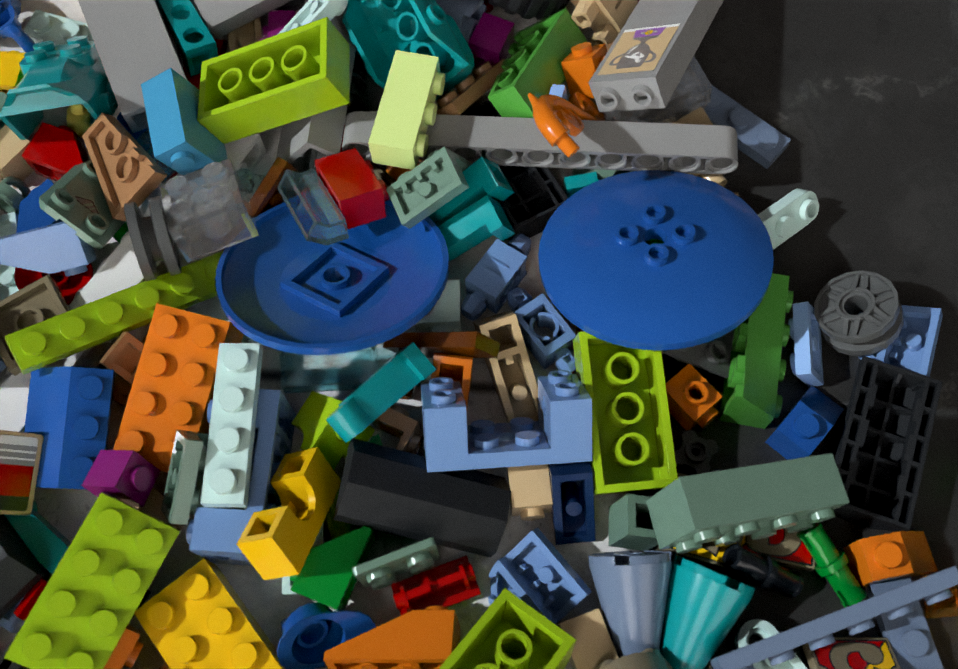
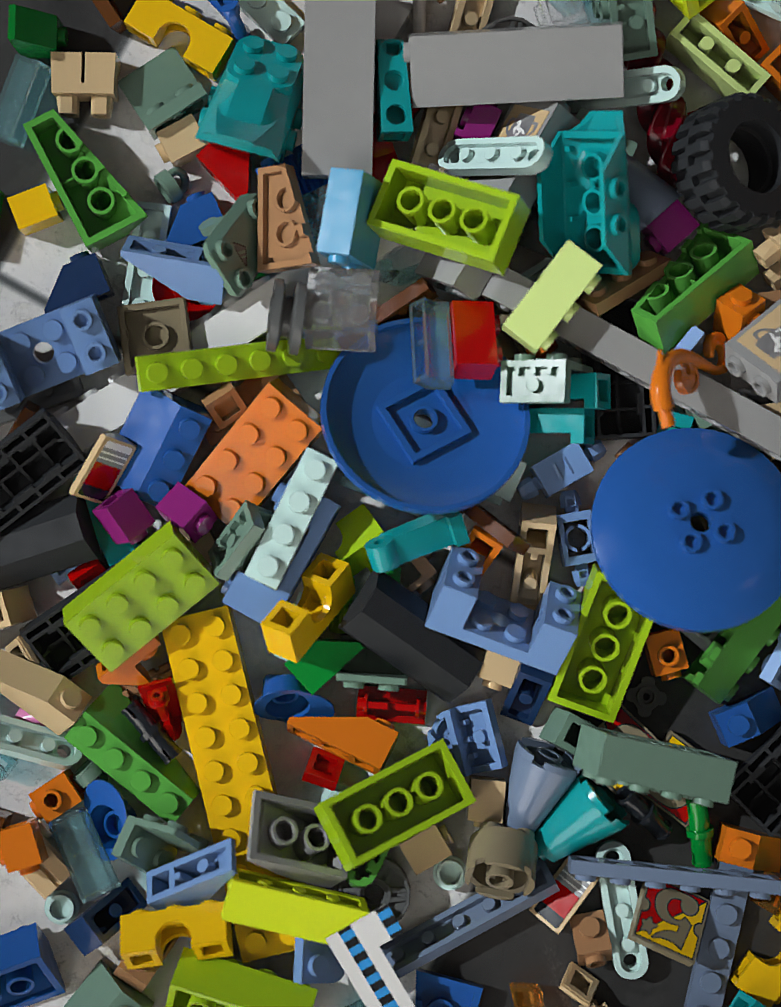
camera: 30 degrees right, 20 degrees up
(51, 513) = (124, 517): none -> magenta brick

